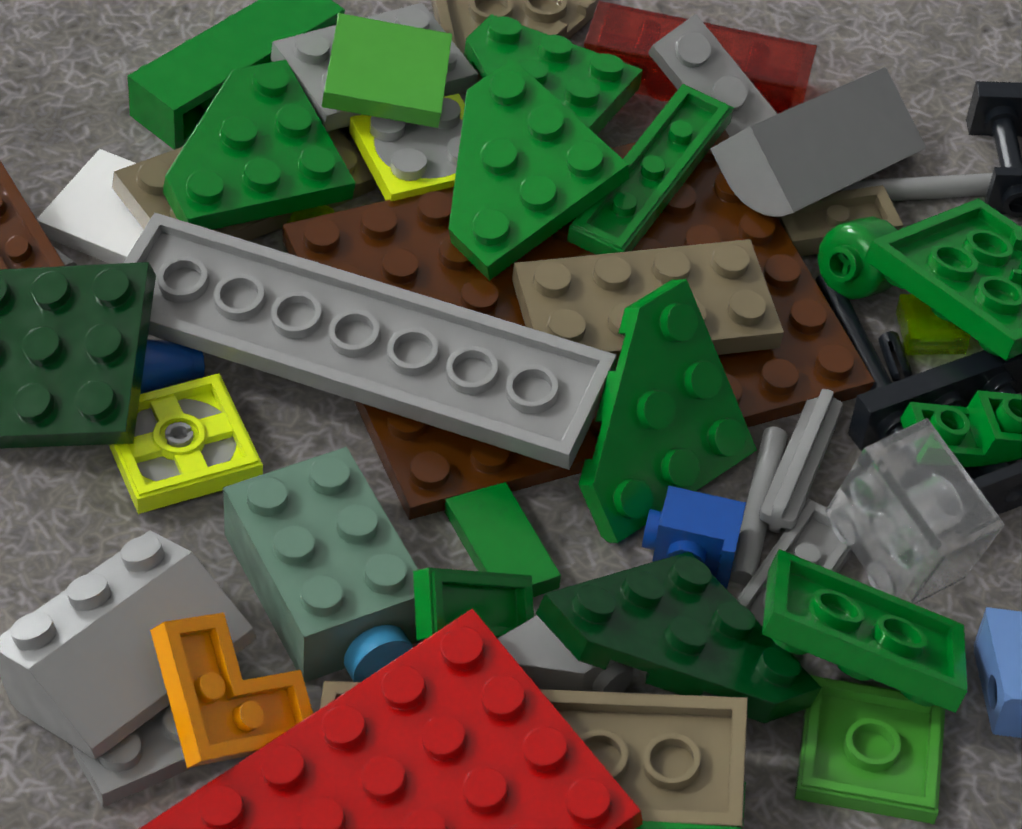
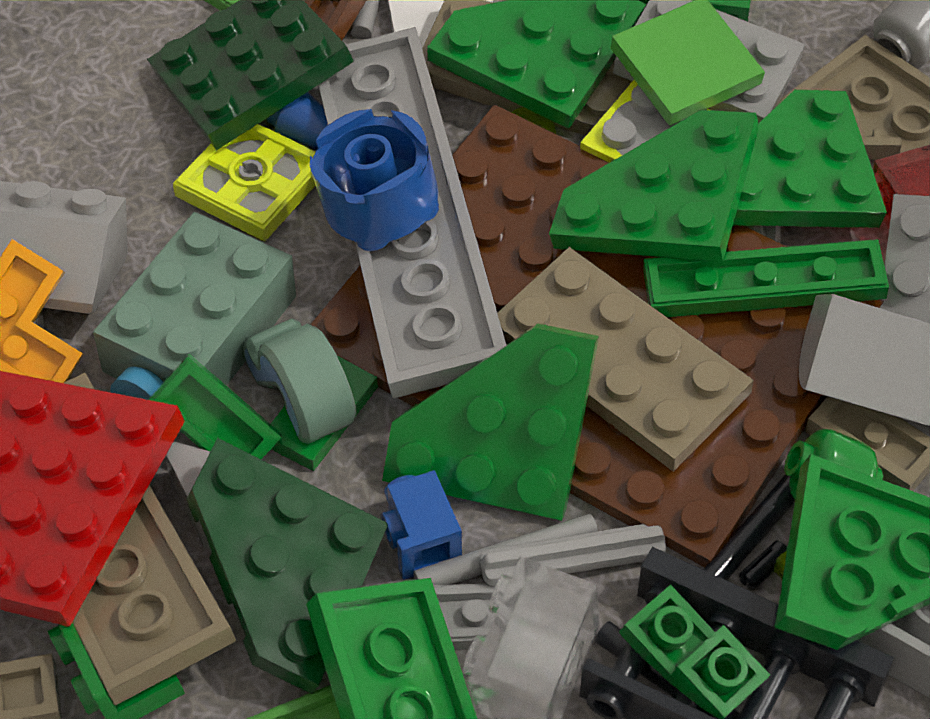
camera: 60 degrees right, 5 degrees up
(351, 322) = (374, 177): none -> blue brick
(472, 508) = (306, 373): none -> sand green animal

